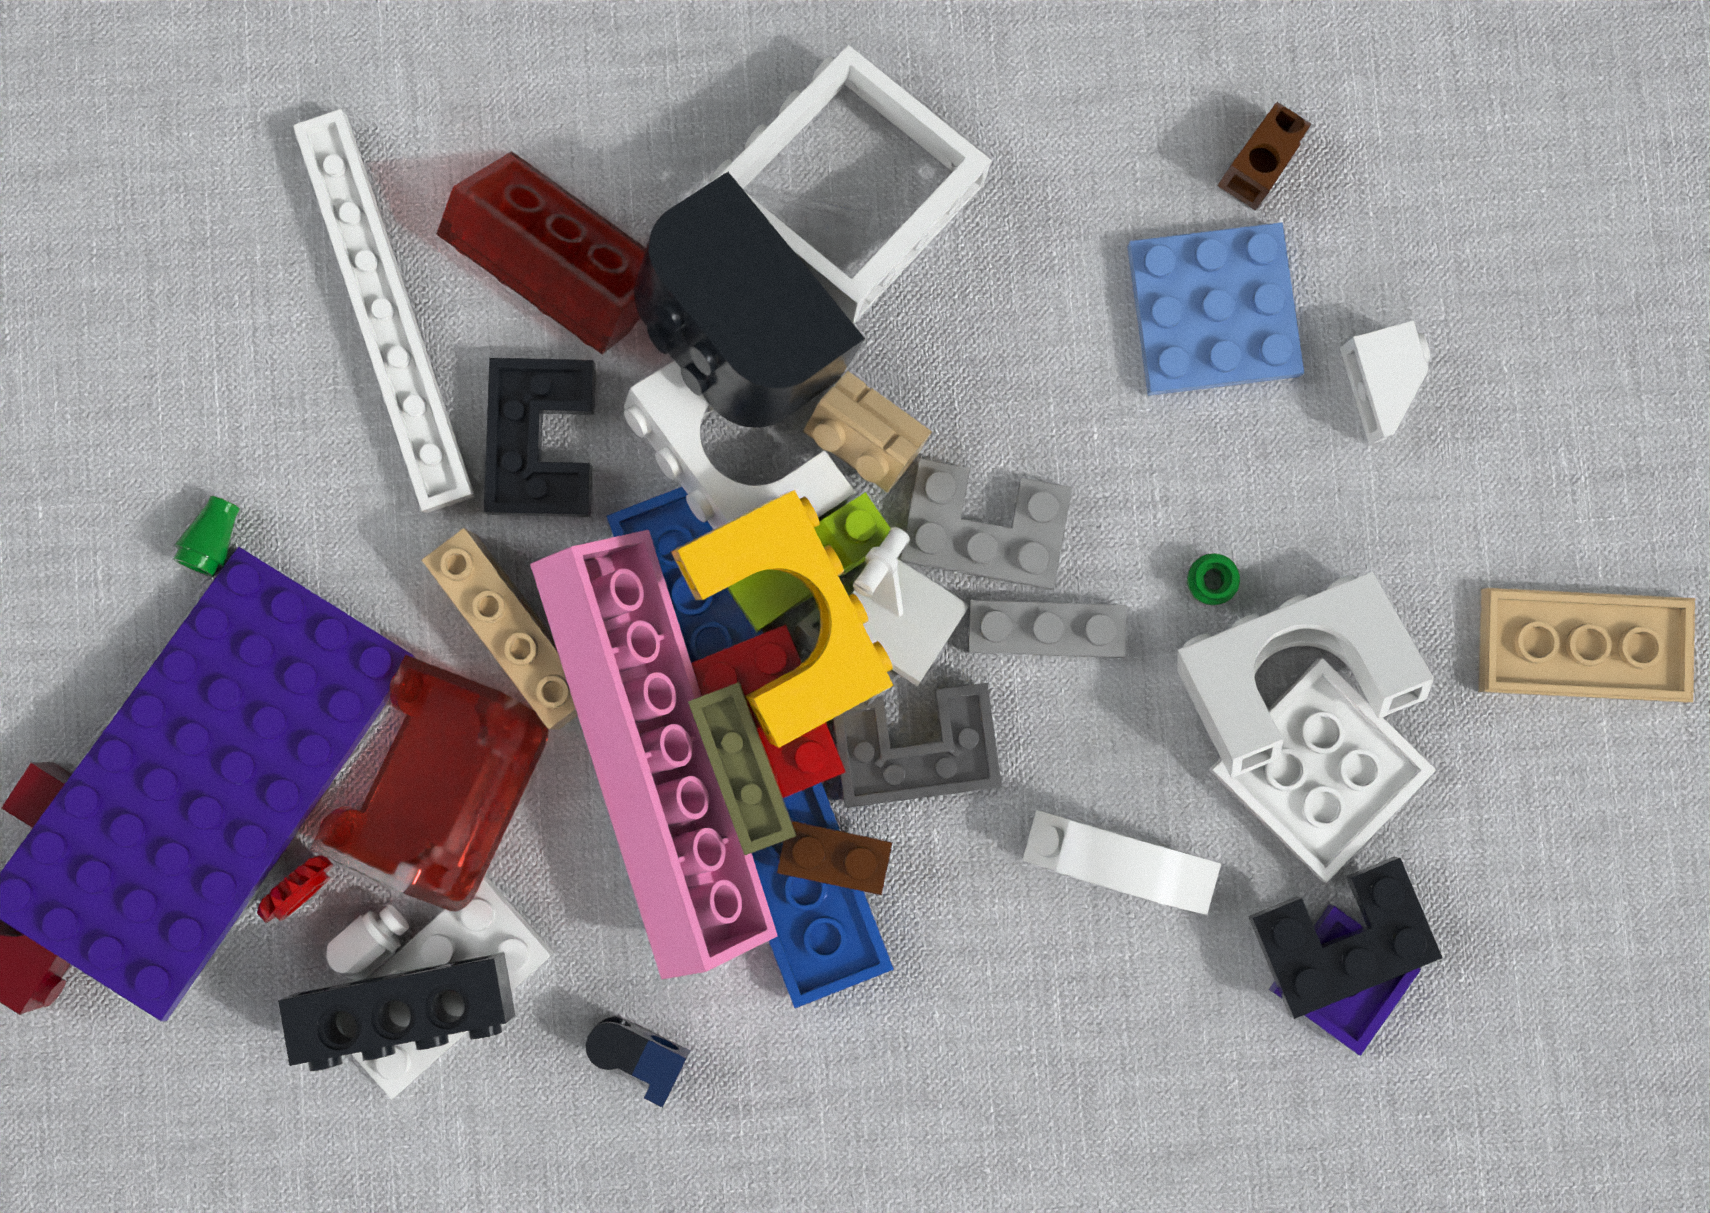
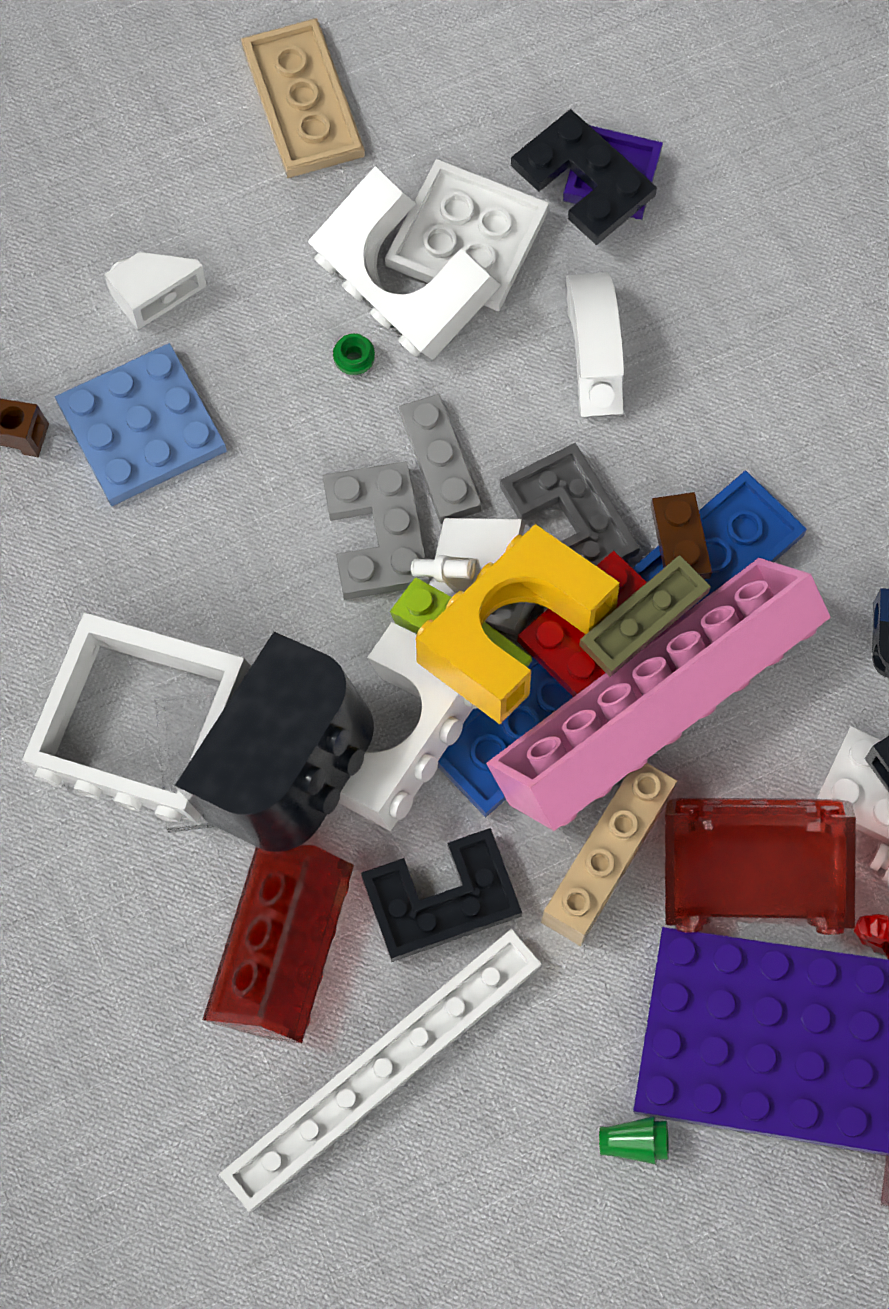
camera: 110 degrees left, 15 degrees down
(866, 431) = (343, 625): tan brick -> none

